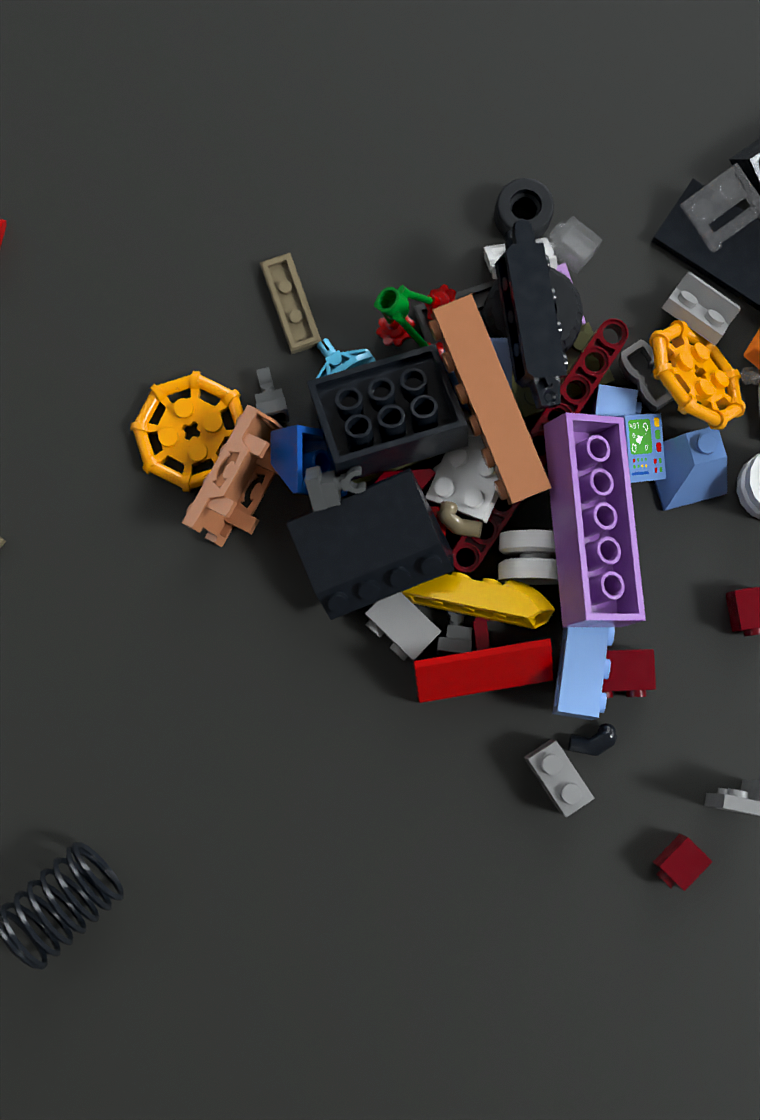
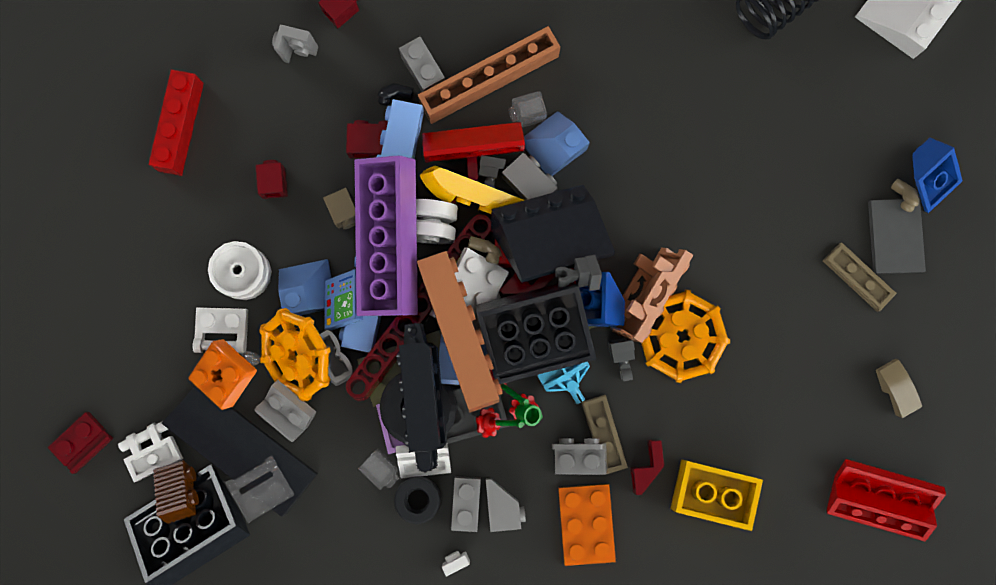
camera: 175 degrees left, 0 degrees up
(147, 230) = (716, 495): none -> yellow brick
(235, 255) = (643, 476): none -> dark red slope
(309, 193) = (586, 524): none -> orange plate
(320, 271) = (580, 458): none -> light grey bracket
(371, 681) = (555, 143): none -> medium blue slope
(410, 724) = (528, 109): none -> clear brick
(416, 205) = (503, 508): none -> light grey slope
(463, 207) = (466, 503): none -> light grey brick
(466, 769) = (489, 75): none -> nougat brick
(471, 137) = (455, 562): none -> white plate
(655, 574) = (341, 208): none -> dark tan brick

